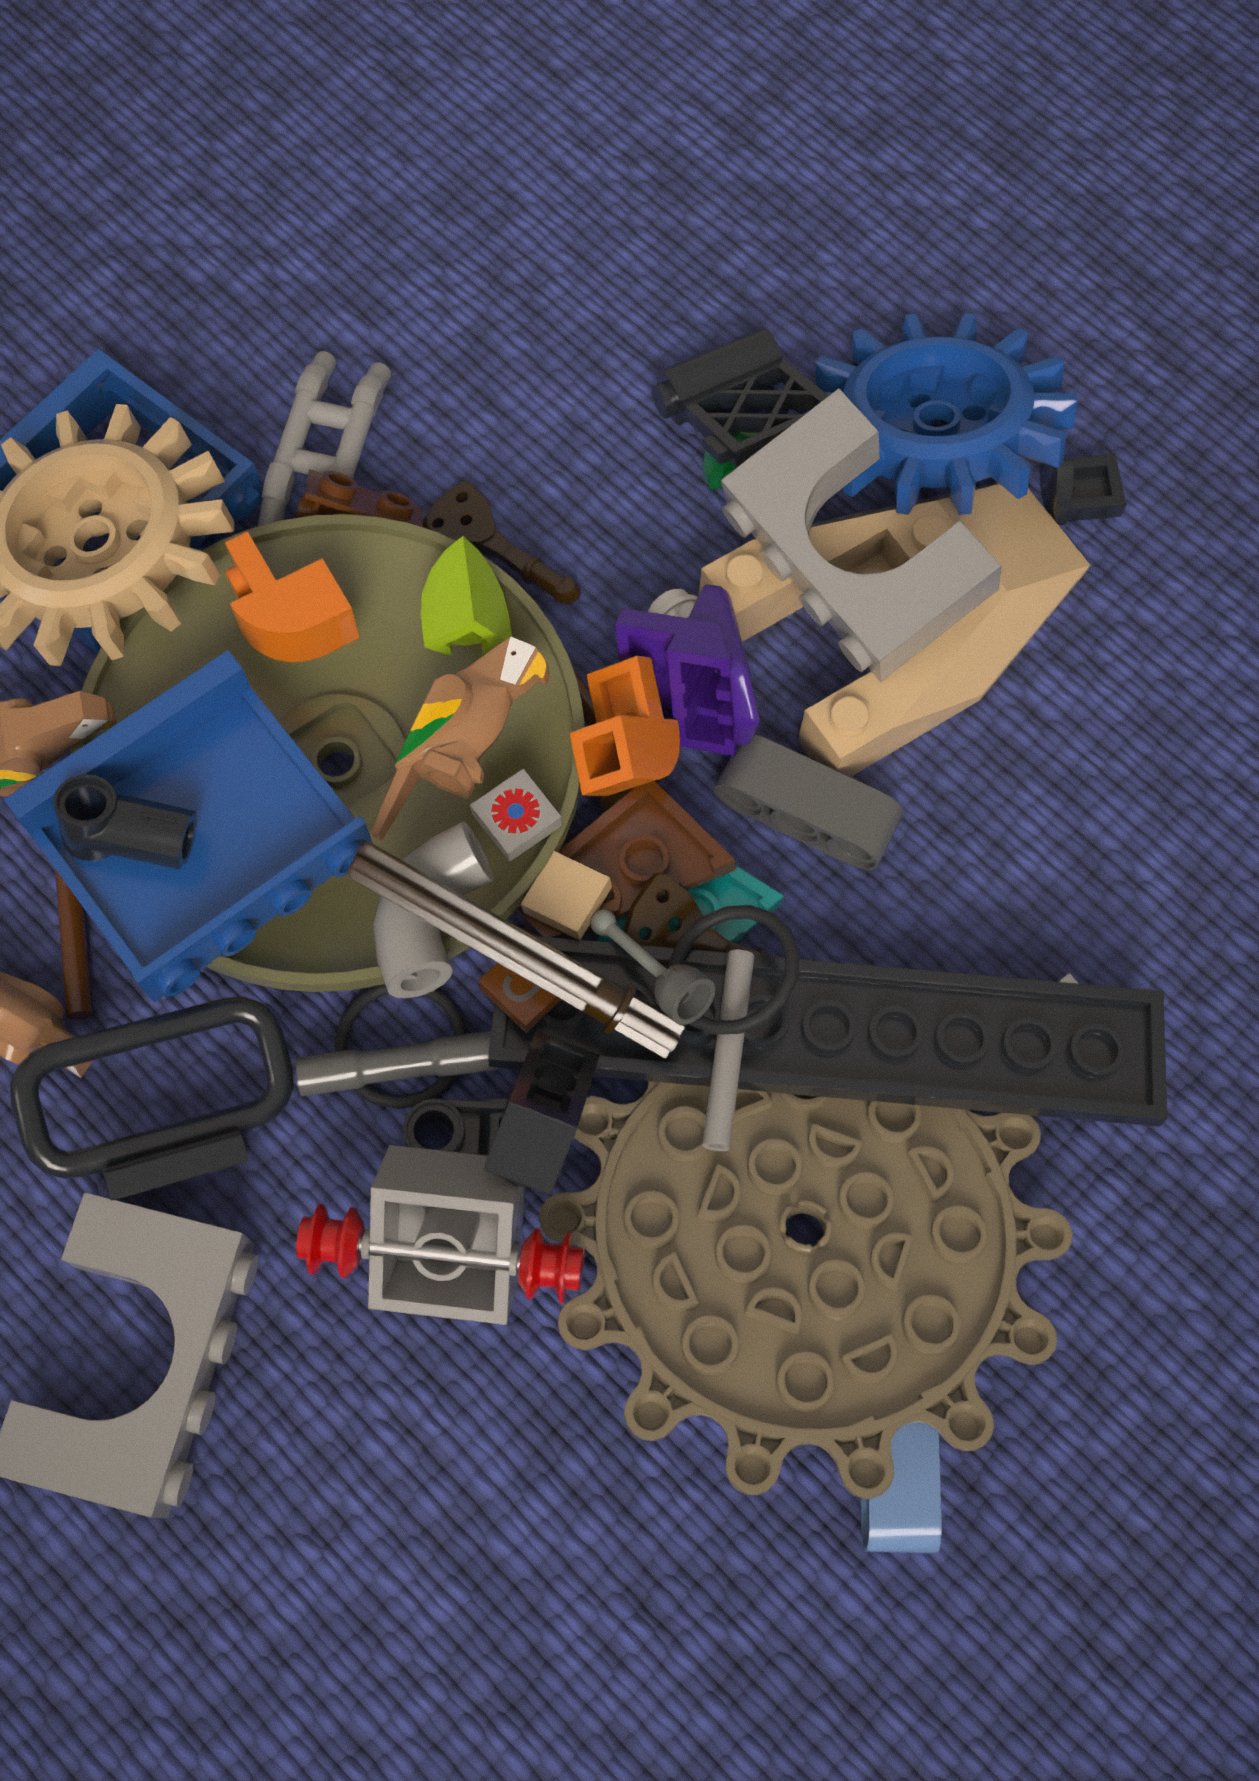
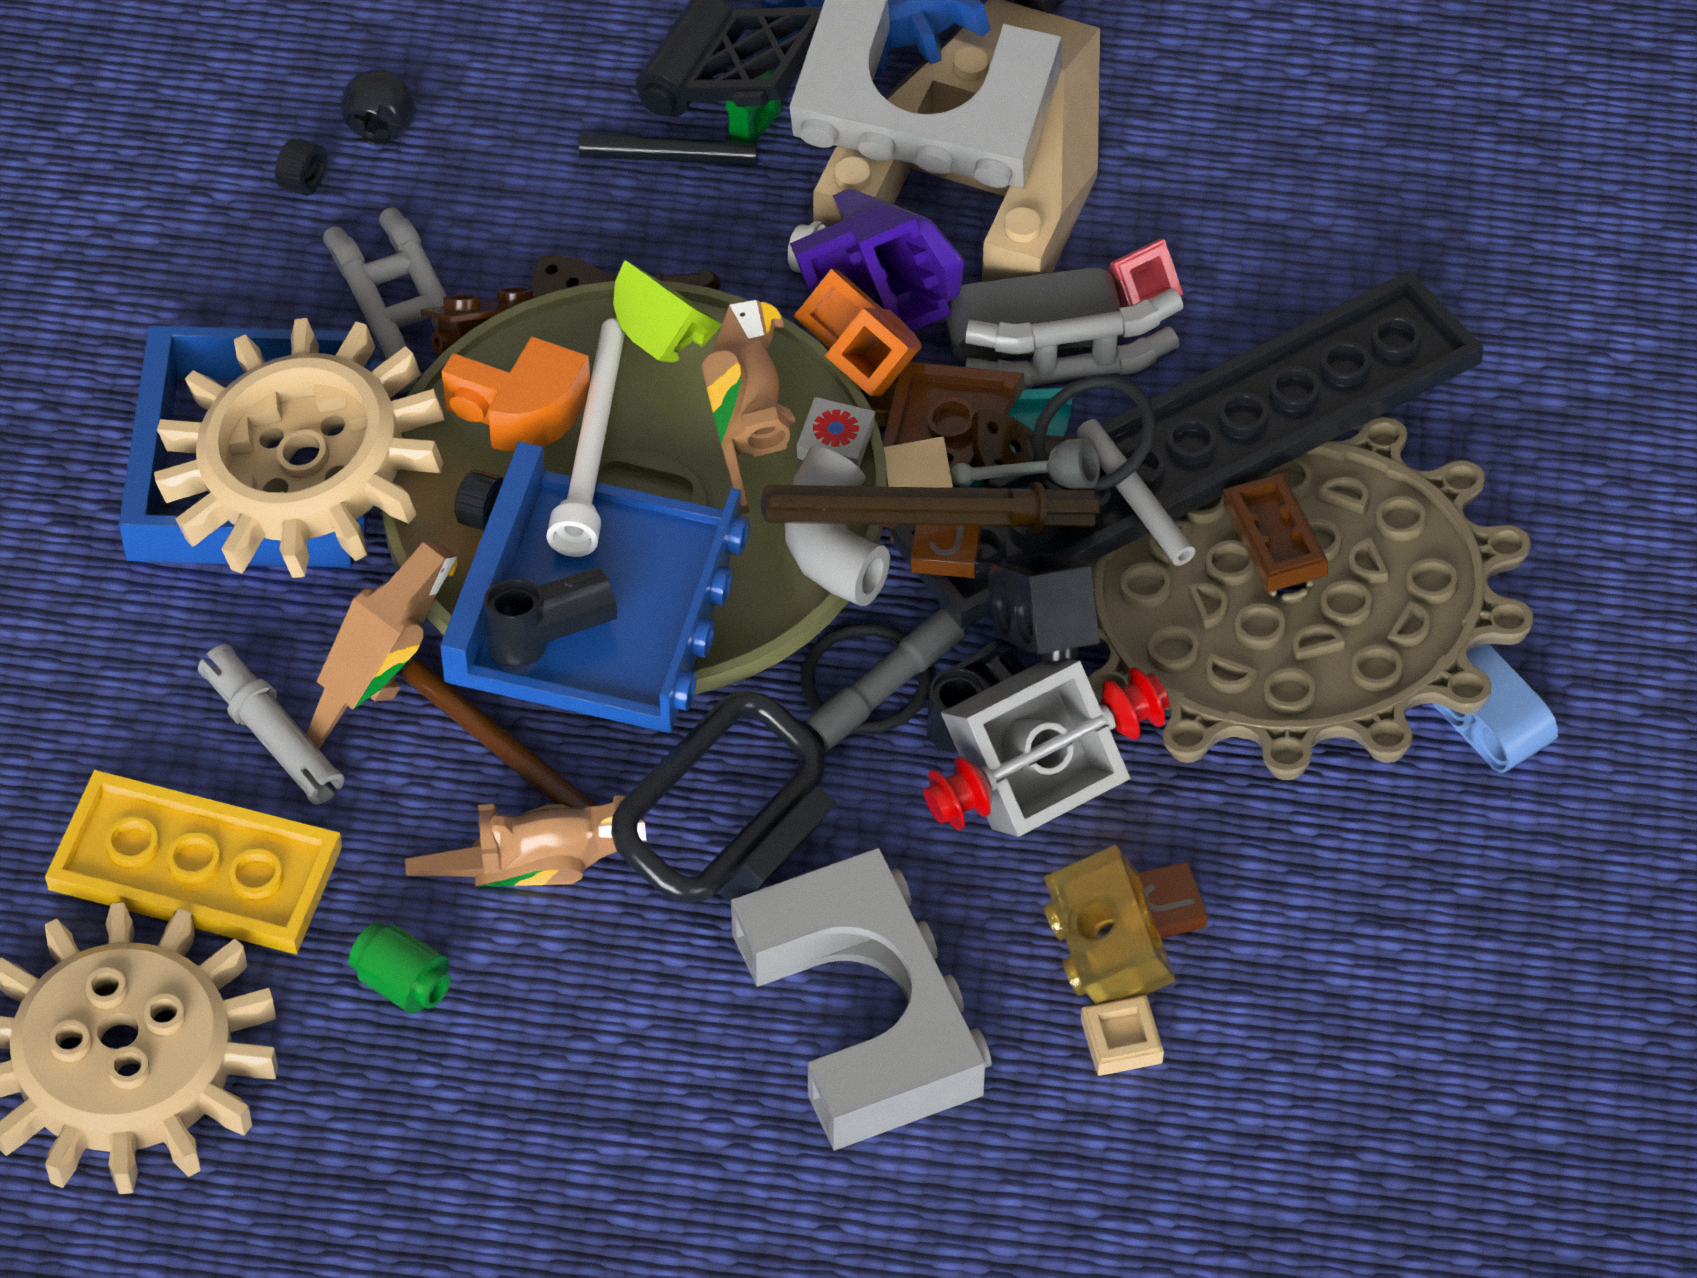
camera: 35 degrees left, 15 degrees down
(169, 670) = (476, 498): none -> black axle
(218, 755) = (575, 522): none -> white piece
(319, 1556) = (1122, 1035): none -> tan tile
(345, 284) = (301, 166): none -> black axle
(382, 1495) = (1101, 893): none -> clear yellow brick
(442, 269) = (377, 106): none -> black piece
(462, 1451) = (1174, 899): none -> reddish brown tile
(643, 450) = (668, 149): none -> black piece
(825, 1175) = (1275, 532): none -> reddish brown plate
(858, 879) = (1101, 328): none -> light grey piece
(934, 830) = (1144, 273): none -> coral slope

